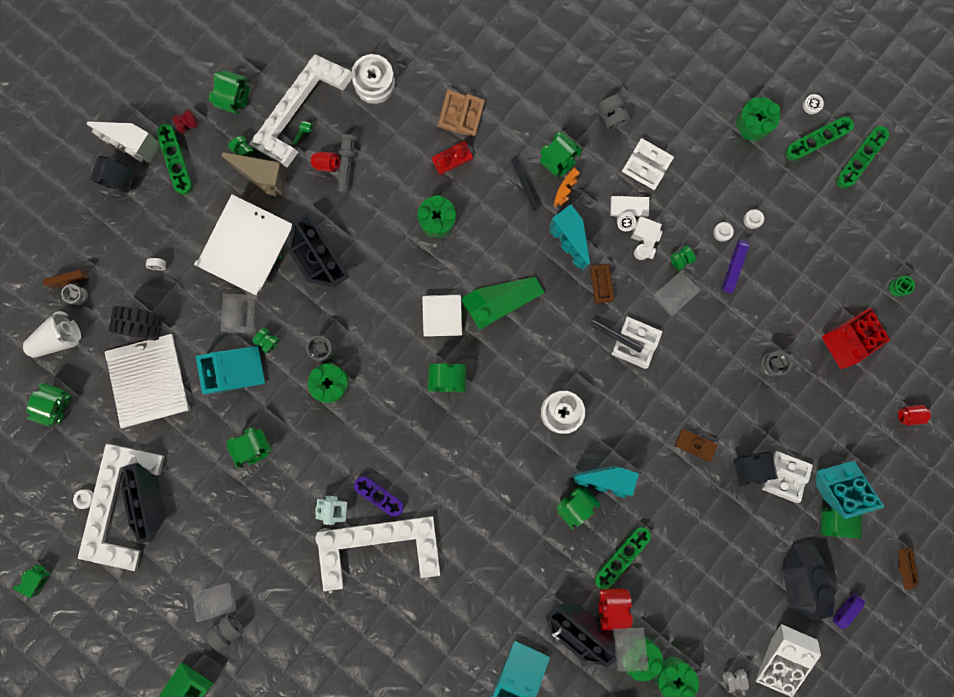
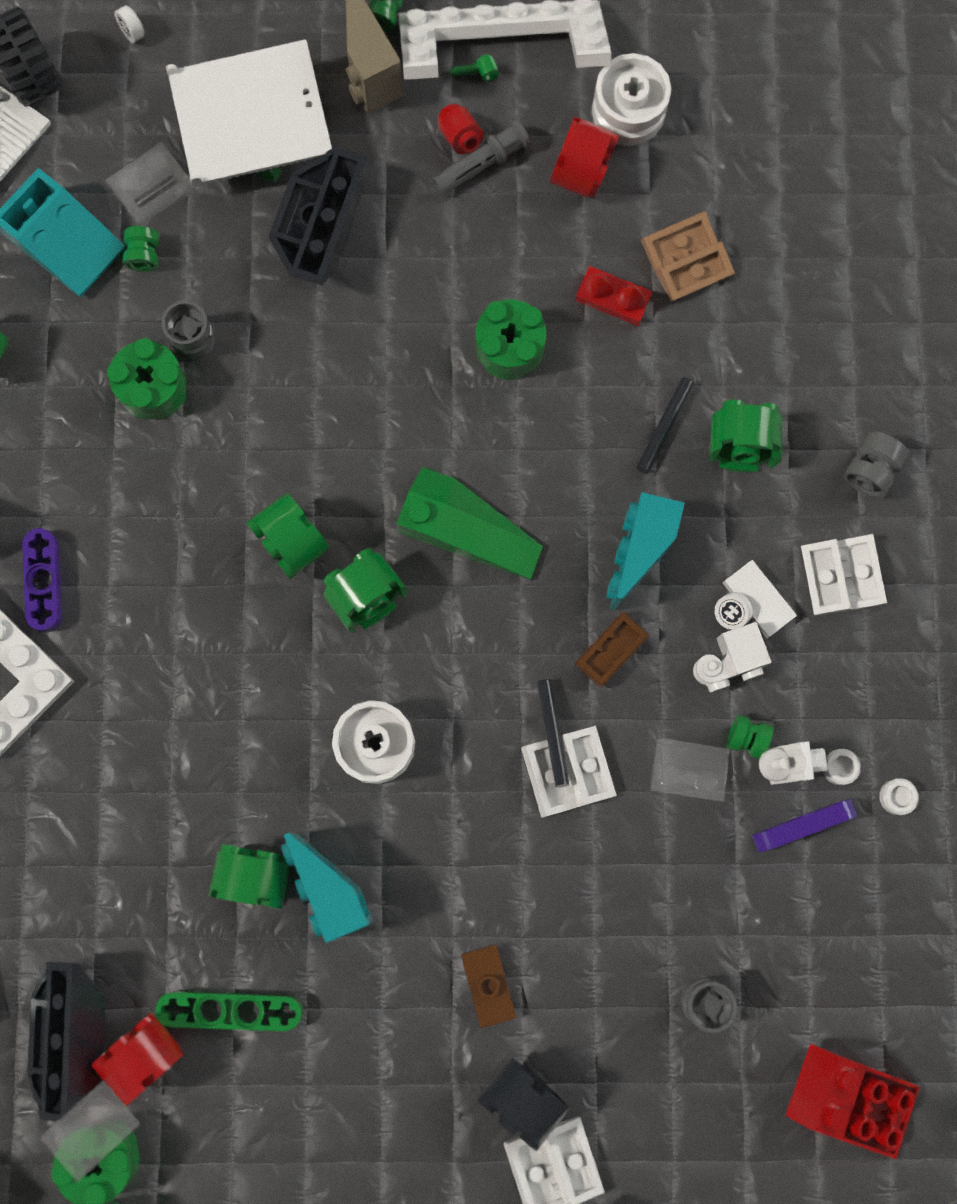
camera: 50 degrees right, 5 degrees down
(383, 121) = (584, 158): none -> red brick
(442, 315) = (376, 460): white slope -> none
(496, 365) = (363, 590): none -> green brick
(563, 191) = (695, 486): orange slope -> none
(708, 250) = (792, 763): none -> white hips

